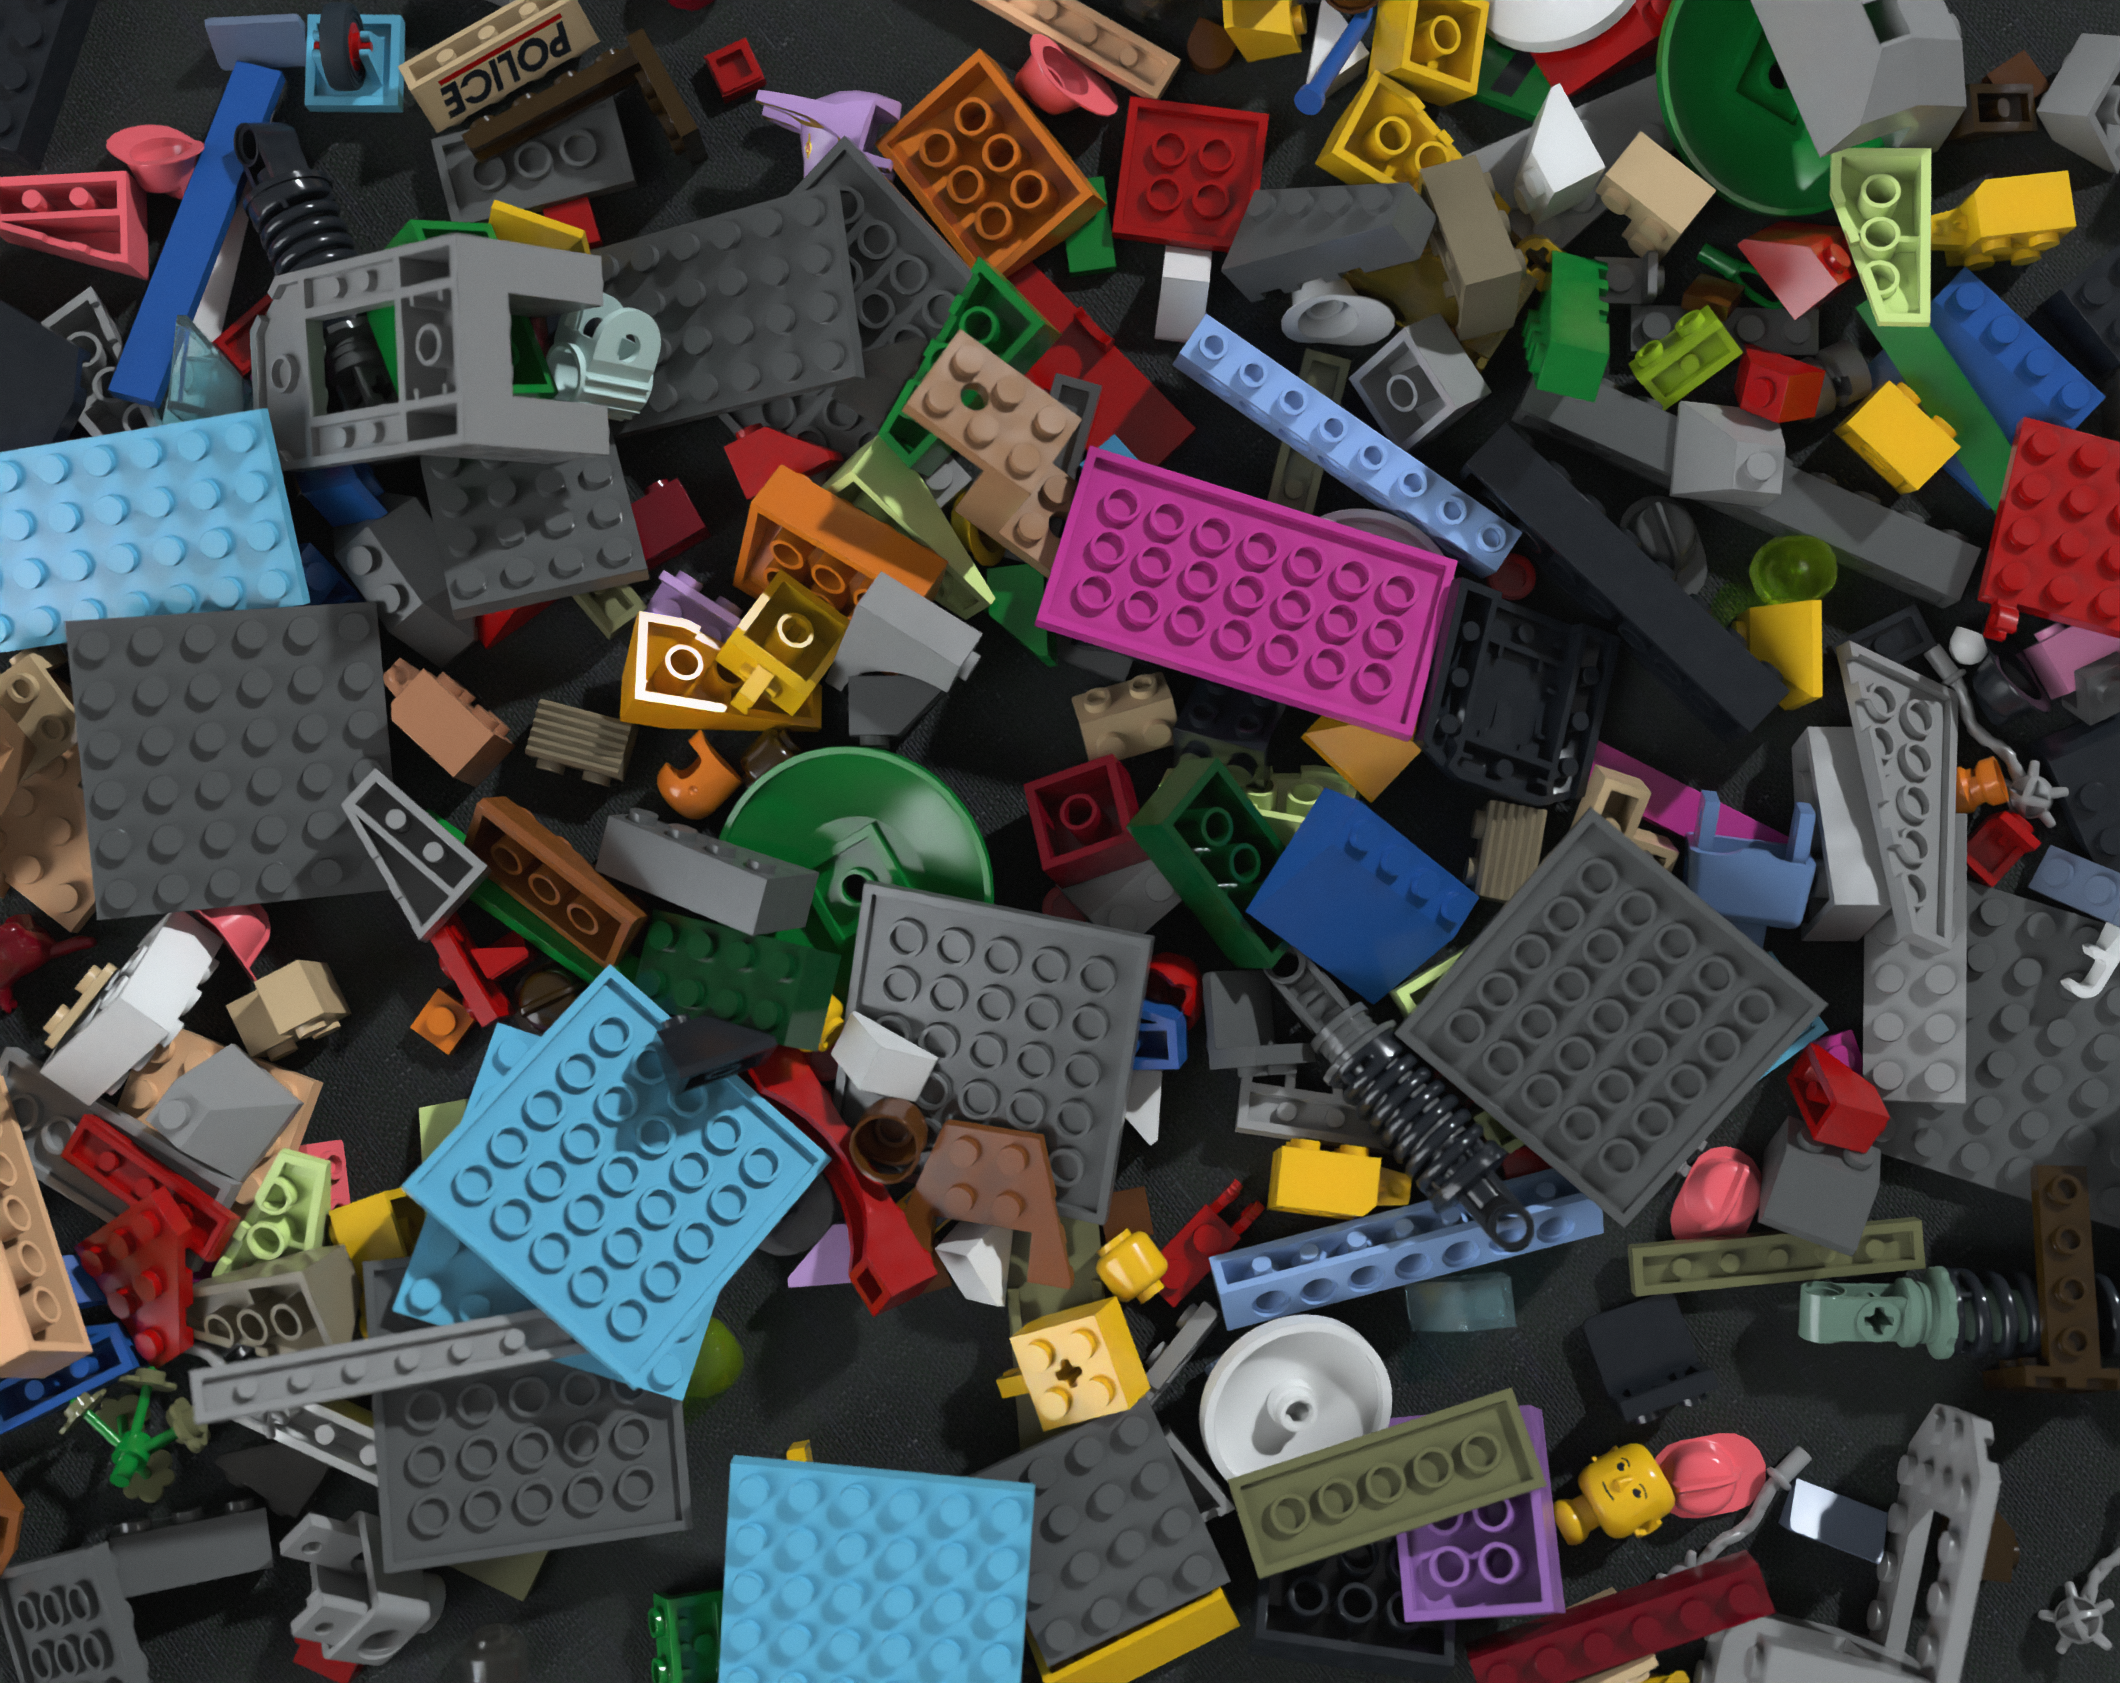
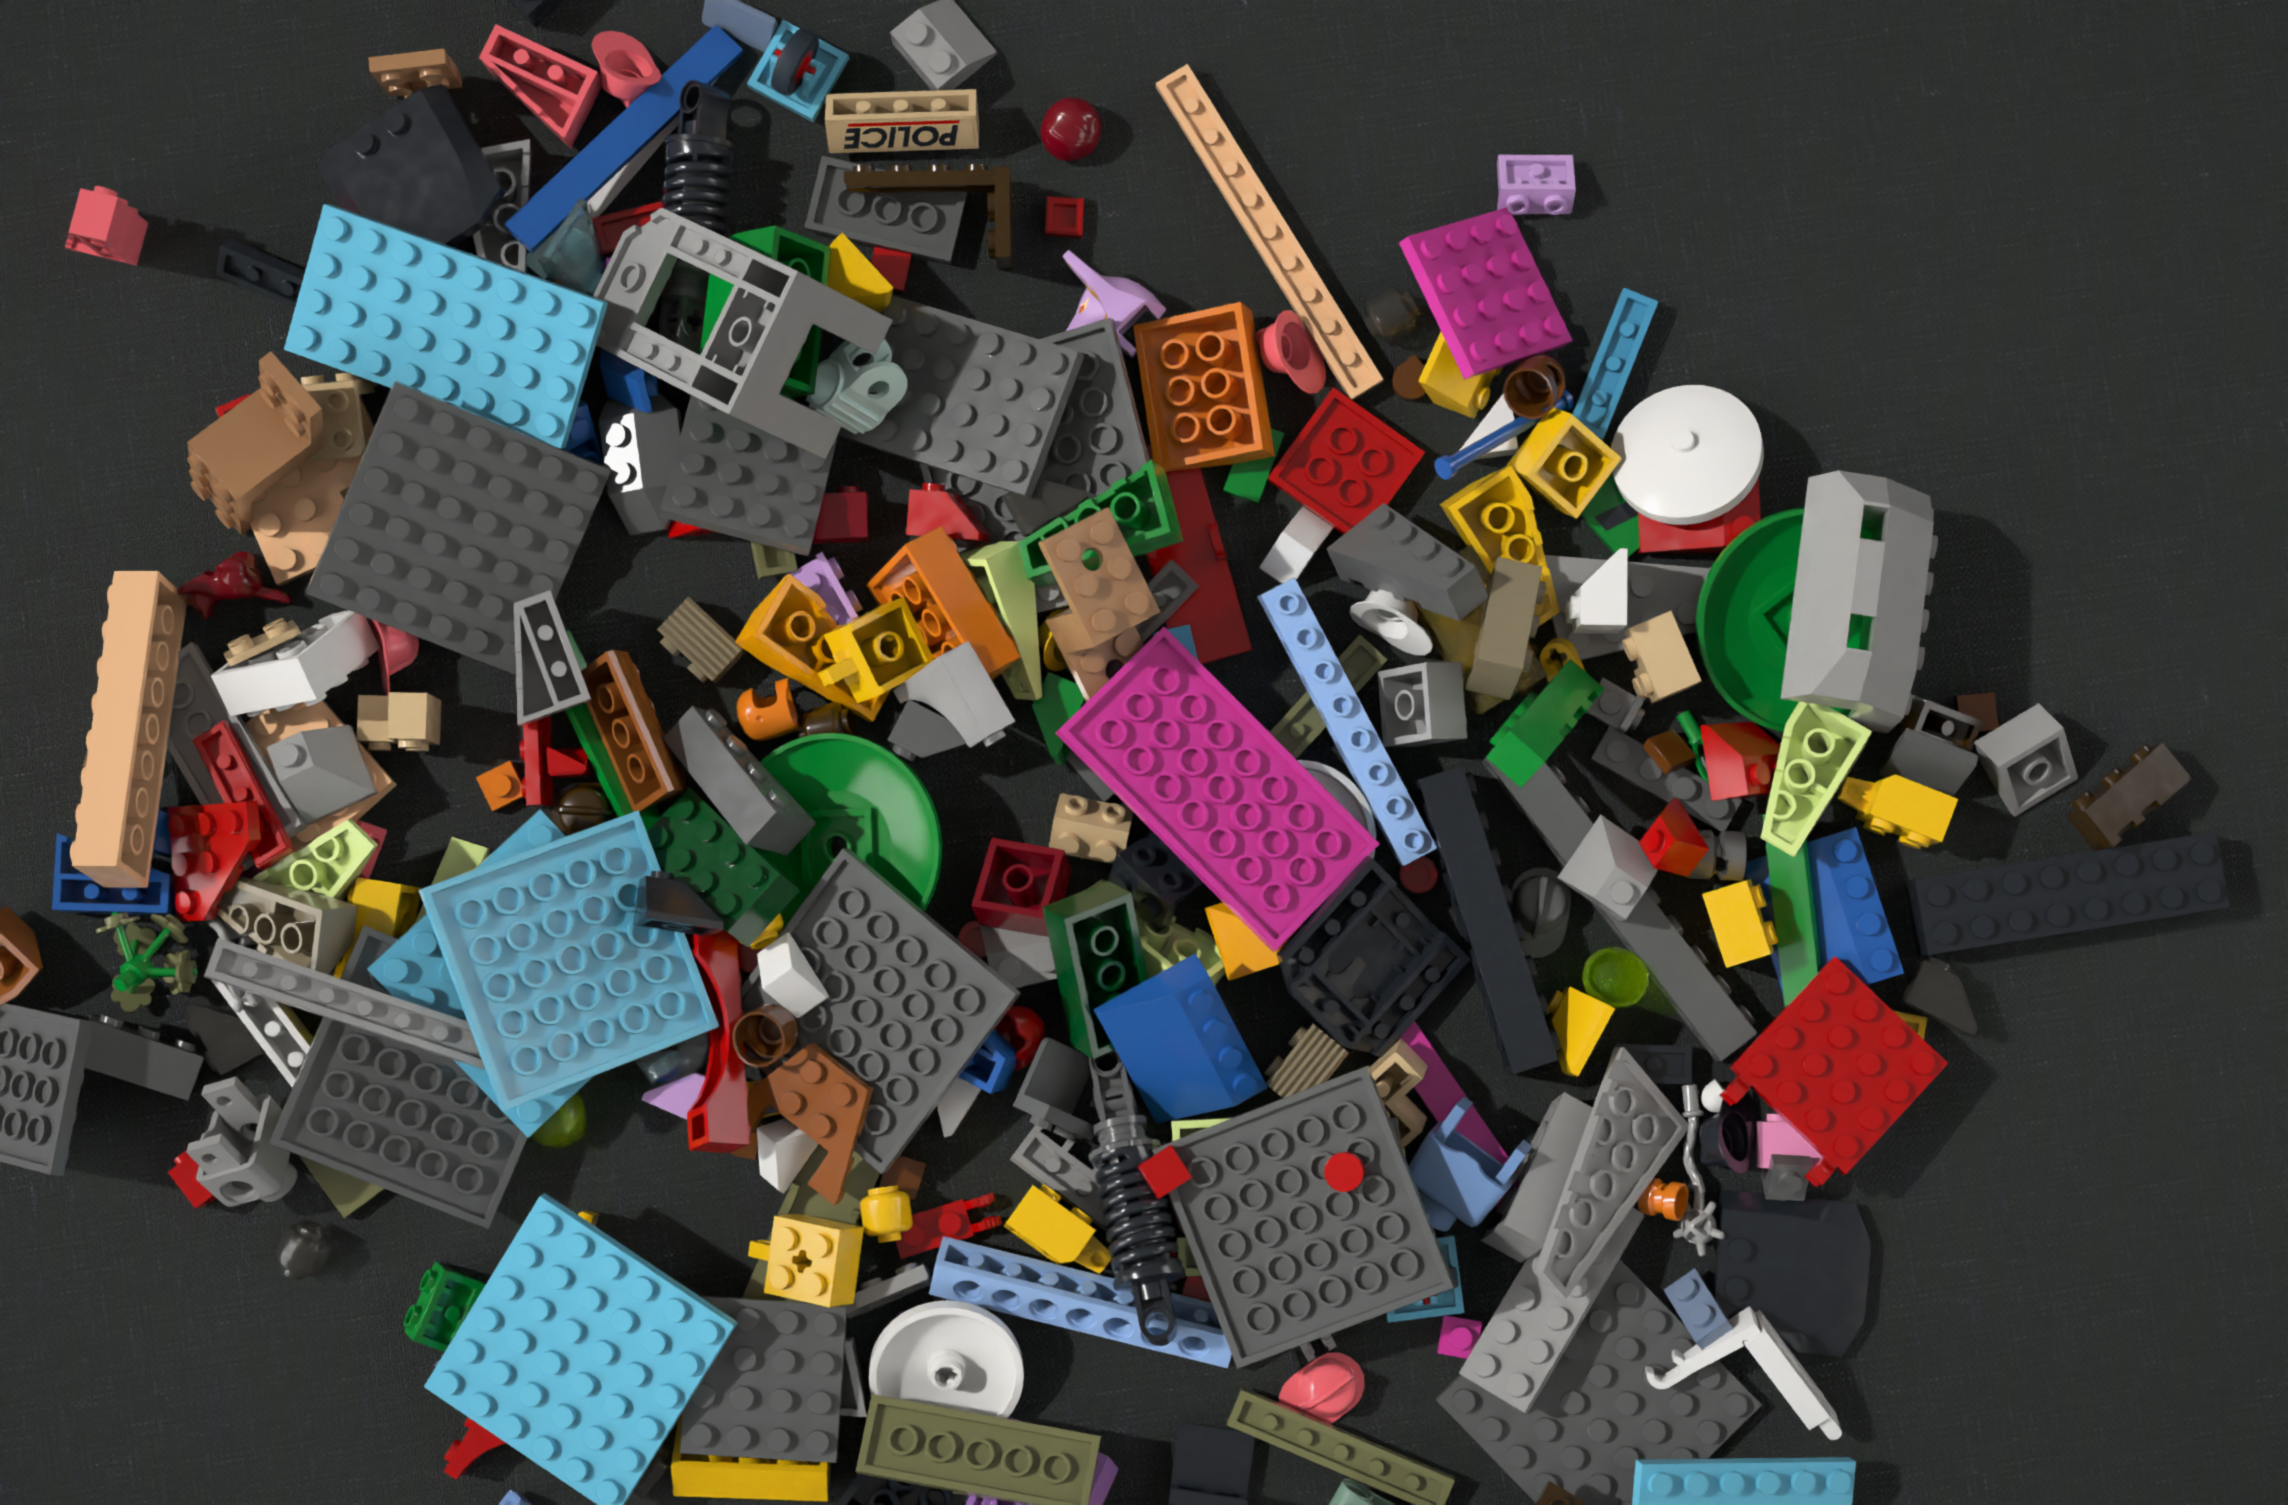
camera: 25 degrees right, 0 degrees up
(445, 724) = (613, 578): nougat hinge -> none
(795, 1239) = (665, 1068): none -> clear light blue tile
(1424, 1051) = (1164, 1172): none -> red tile
(1461, 1303) = (1101, 1363): clear light blue slope -> none
(1632, 939) = (1344, 1171): none -> red tile
(1684, 356) = (1623, 784): lime bracket -> none
(1817, 1188) = (1394, 1415): dark grey slope -> none
(1836, 1101) = (1438, 1364): red slope -> none
(1998, 845) = (1654, 1249): red bracket -> none
(2003, 151) = (1929, 762): none -> dark grey tile

